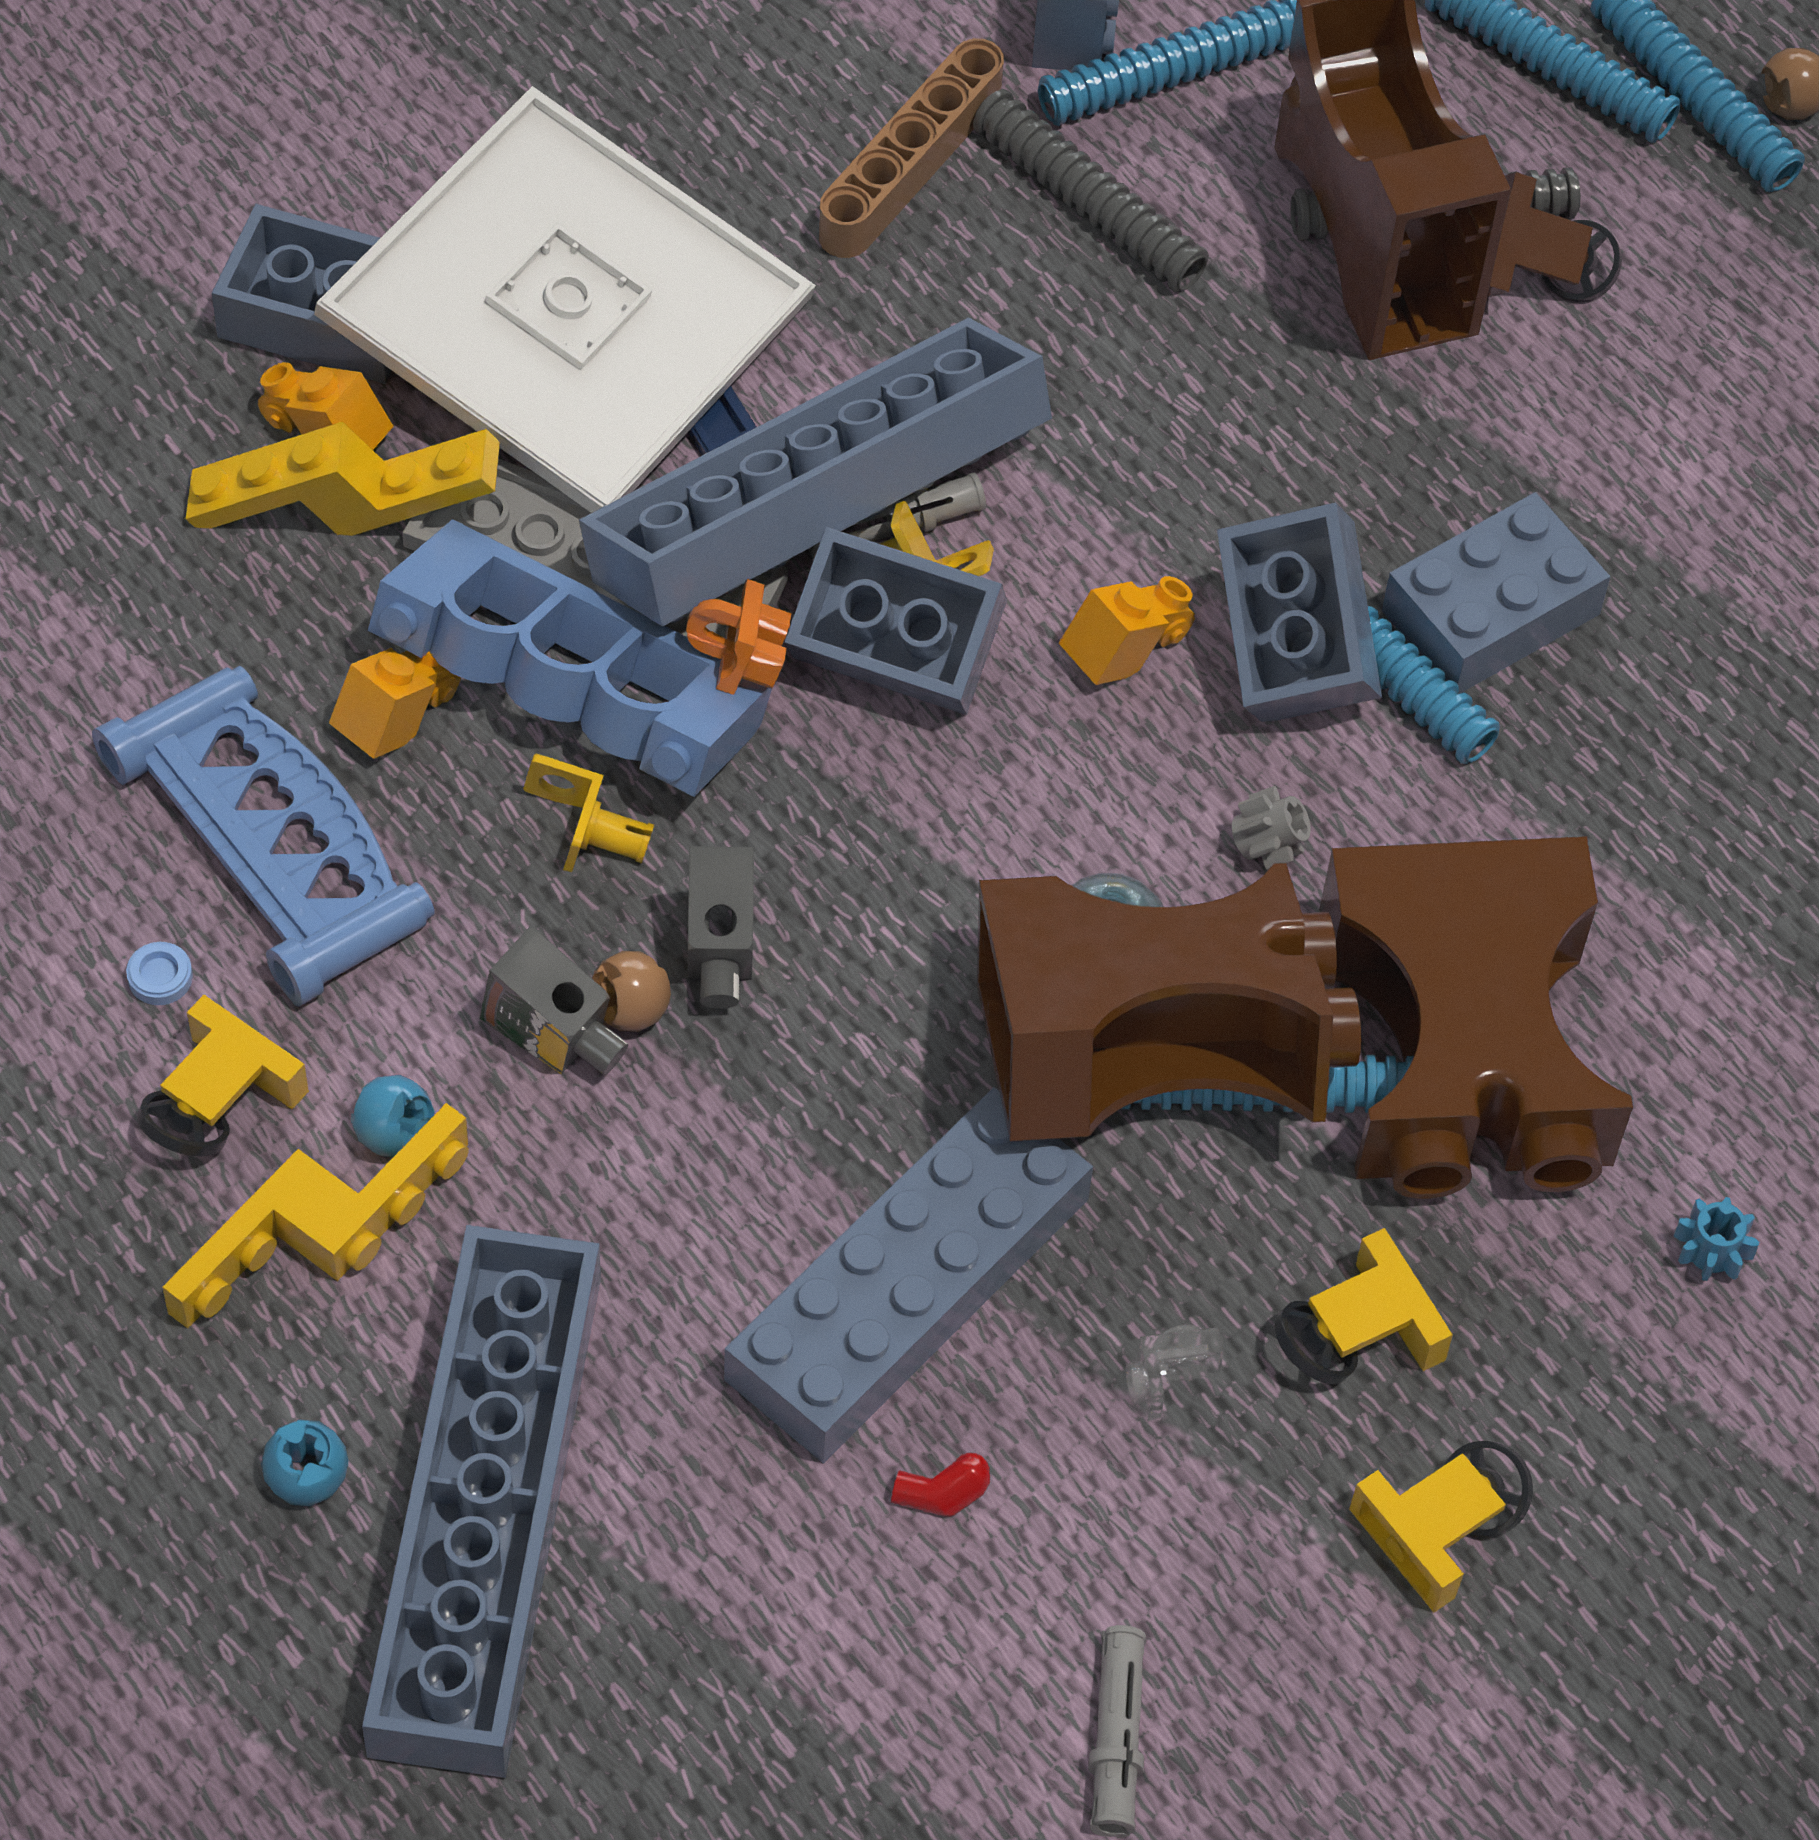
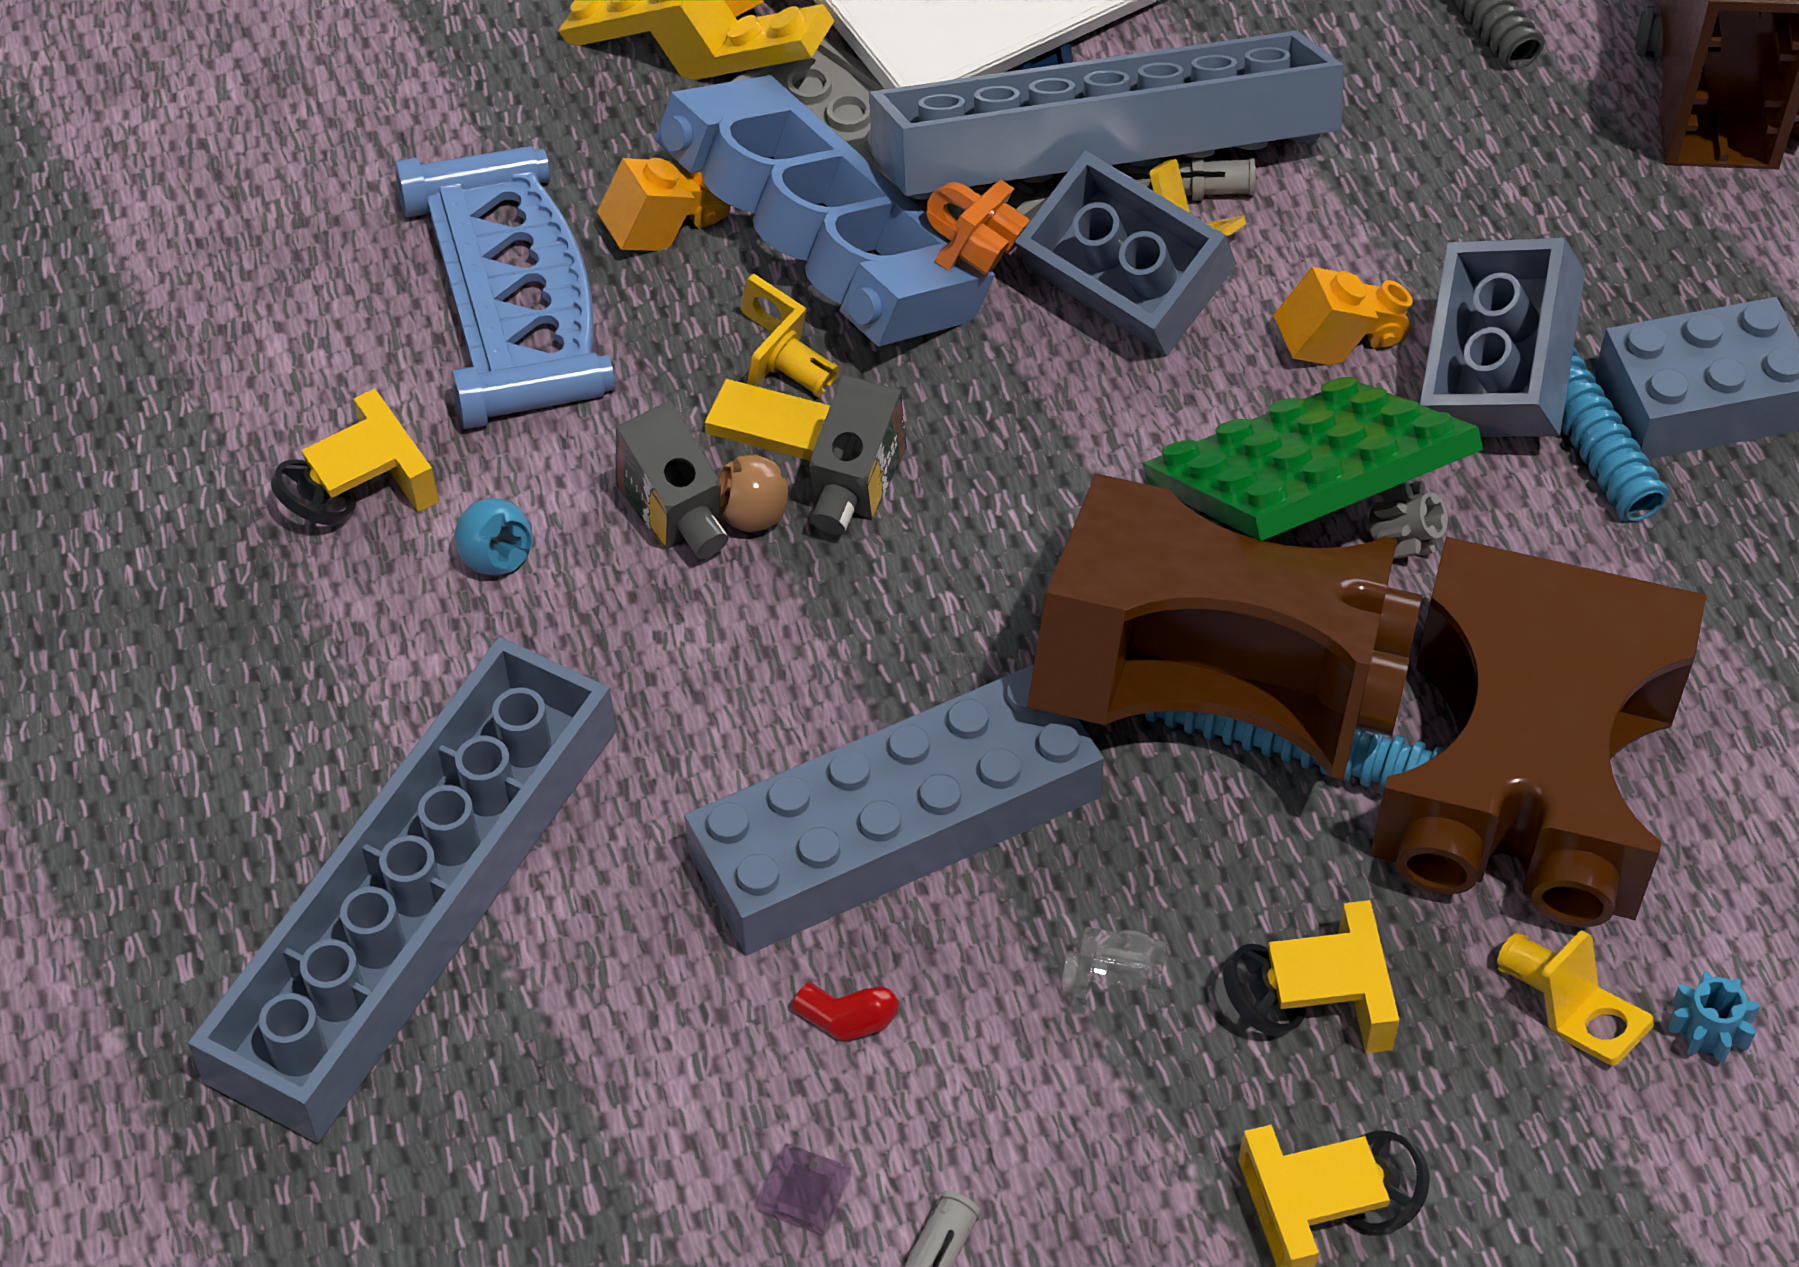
camera: 25 degrees right, 5 degrees down
(159, 973) = (359, 370): light blue tile -> none
(294, 1443) = (273, 804): dark azure piece -> none
(317, 1217) = (388, 600): yellow bracket -> none
(608, 902) = (766, 419): none -> yellow tile
(977, 1668) = (804, 1189): none -> clear purple tile
(1164, 797) = (1310, 457): none -> green plate
(1588, 1257) = (1574, 994): none -> yellow bracket

